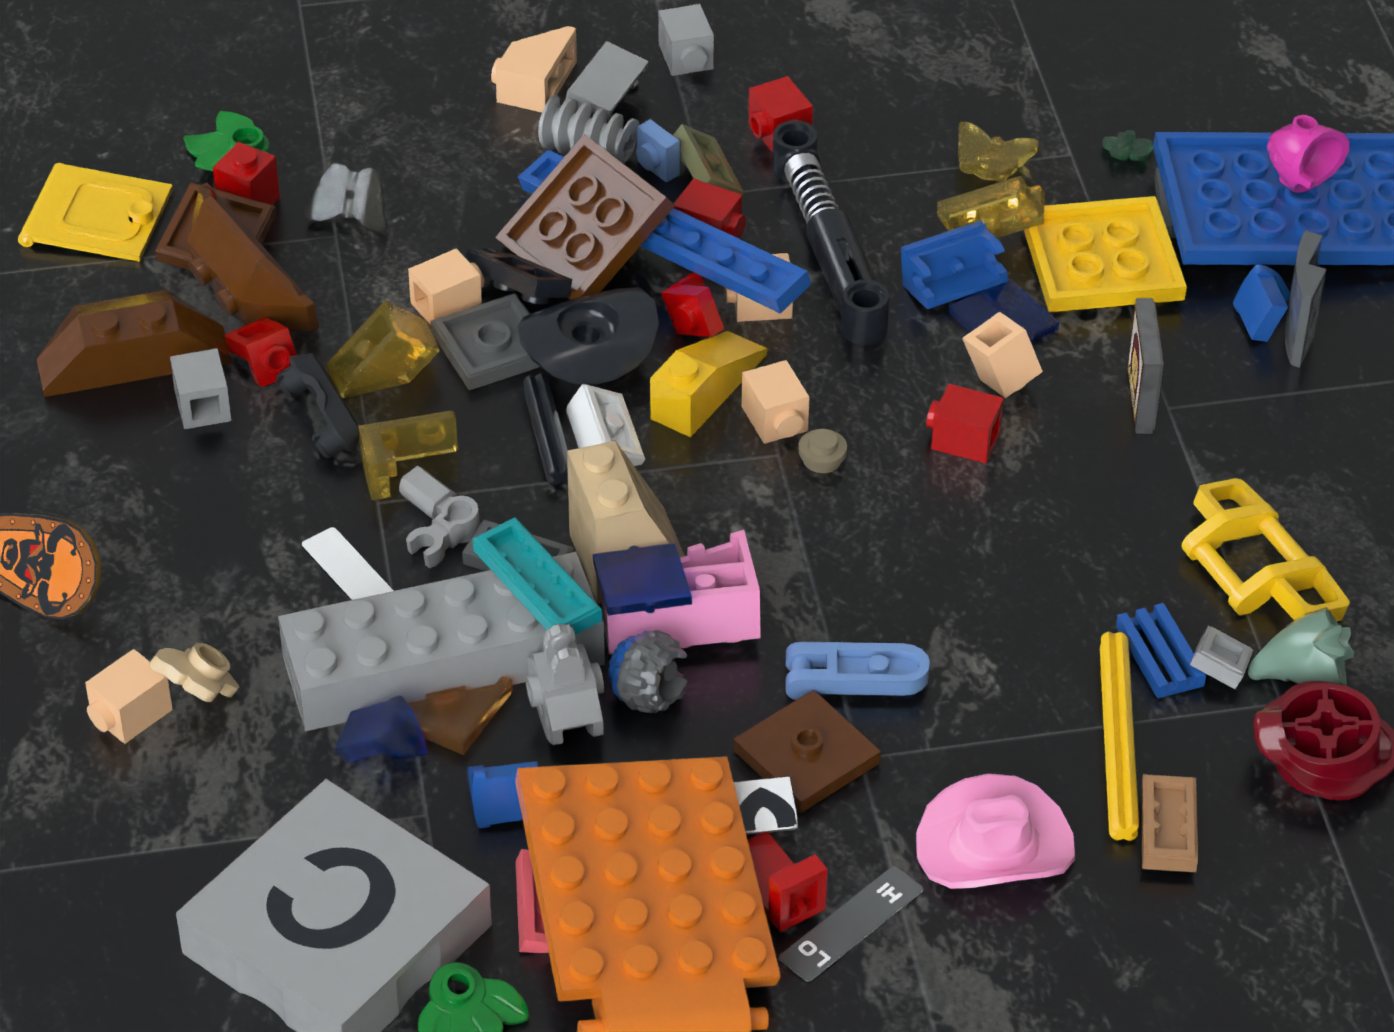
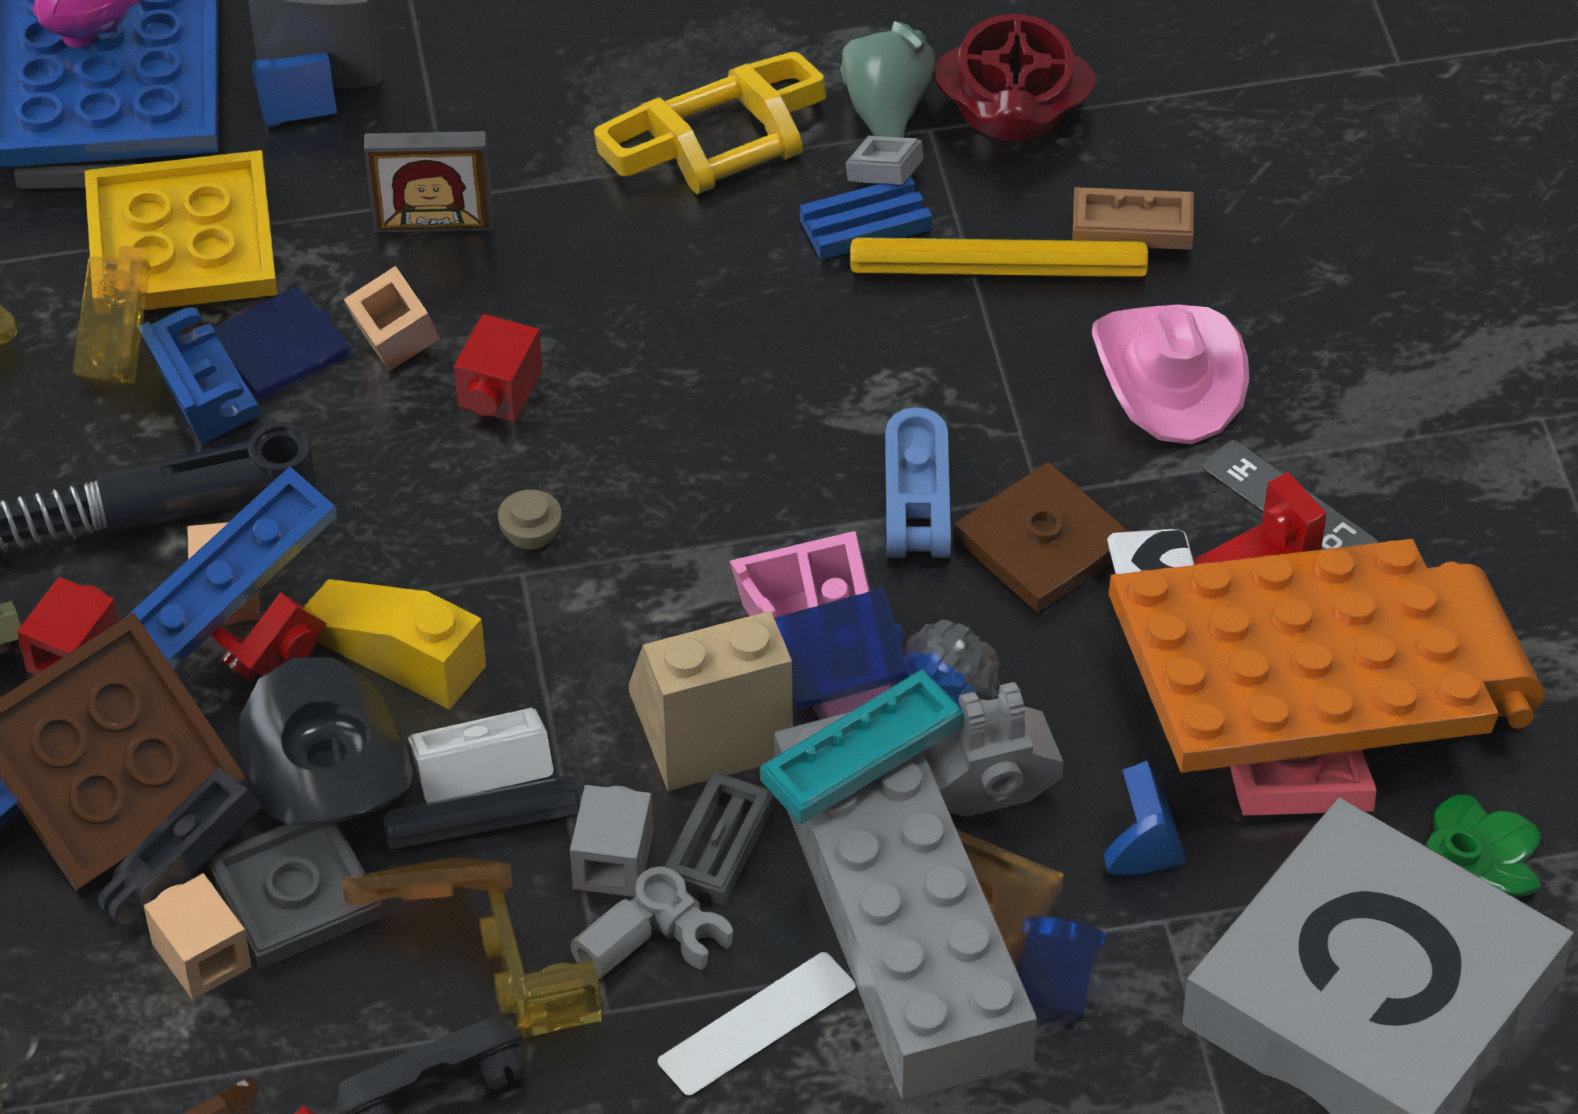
camera: 90 degrees left, 5 degrees up
(382, 352) = (336, 1004): clear yellow slope -> none
(474, 391) = (428, 880): none -> clear orange tile
(510, 487) = (611, 839): none -> light grey brick
(775, 401) = (454, 555): light nougat brick -> none

